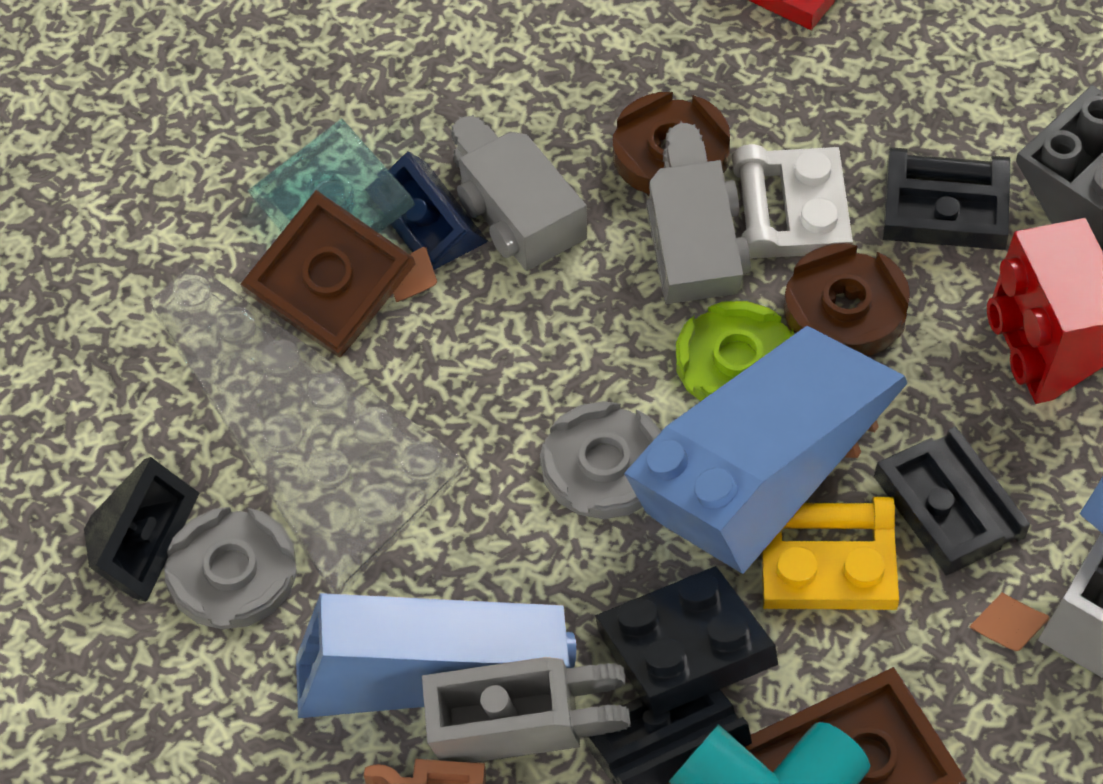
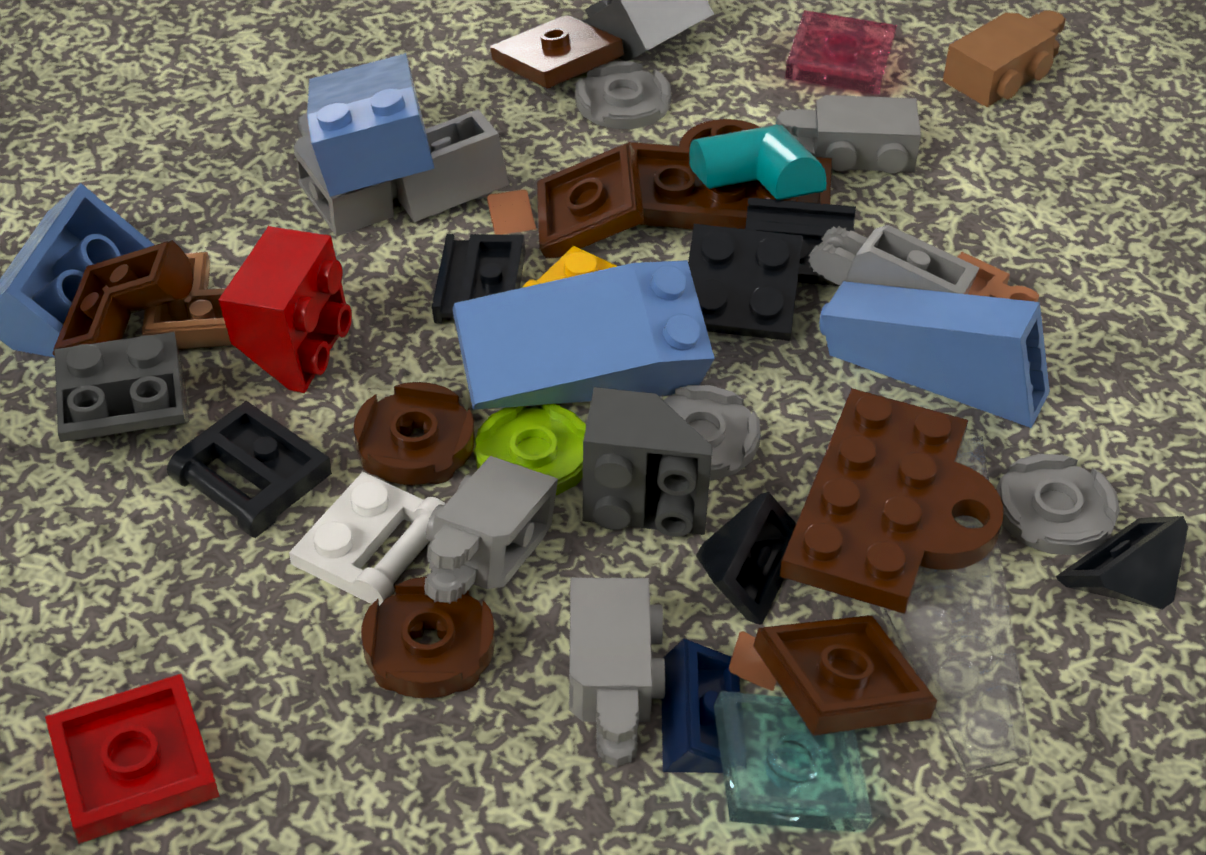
camera: 150 degrees left, 10 degrees down
(374, 440) = (890, 504): none -> reddish brown plate
(471, 345) = (748, 556): none -> black slope
(605, 329) = (643, 465): none -> dark grey slope
(928, 655) = (589, 201): none -> reddish brown plate

